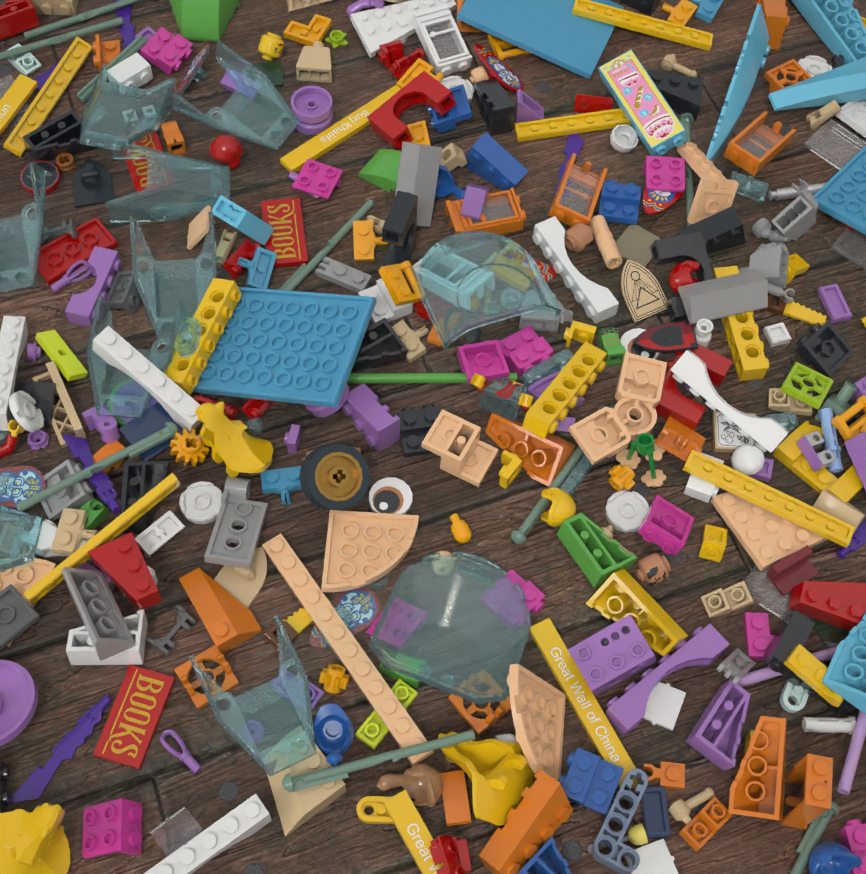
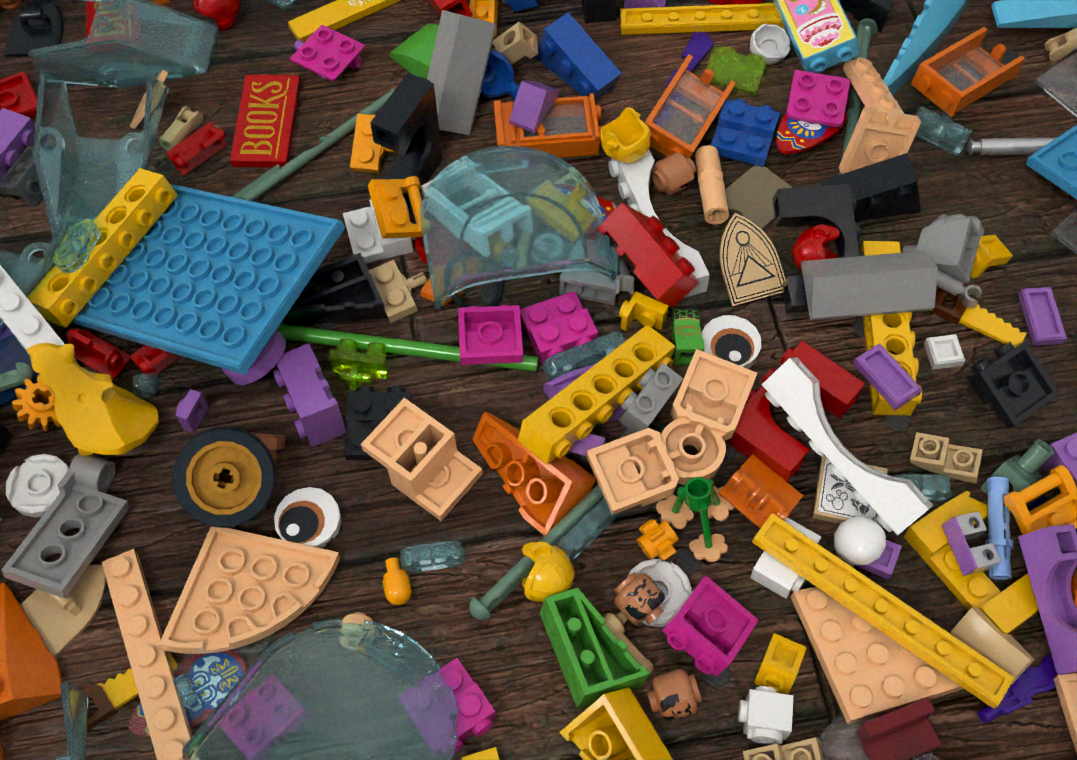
camera: 15 degrees right, 0 degrees up
(242, 220) = (203, 95): medium azure window -> none
(259, 268) = (213, 163): dark azure plate -> none
(281, 481) = (152, 470): dark azure plate -> none
(343, 275) = (330, 187): light grey hinge -> none
(398, 393) = (359, 366): none -> clear neon green hips
(480, 509) = (432, 556): none -> clear light blue beam
(503, 396) = (506, 389): torso -> none
(511, 468) = (492, 505): yellow bracket -> none
(545, 216) = (626, 137): none -> yellow cap
(580, 294) = (651, 252): none -> red wedge
(600, 390) = (644, 406): none -> light grey plate
(604, 157) = (742, 69): none -> clear neon green bracket
(619, 514) = (639, 598): none -> nougat head
(668, 338) = (773, 335): shield -> none
(703, 332) = (822, 337): white piece -> none
(711, 573) = (766, 715): none -> white brick
(746, 354) = (887, 376): none -> medium lavender tile
(792, 221) = (996, 185): light grey torso -> none
(809, 375) = (985, 423): lime piece -> none

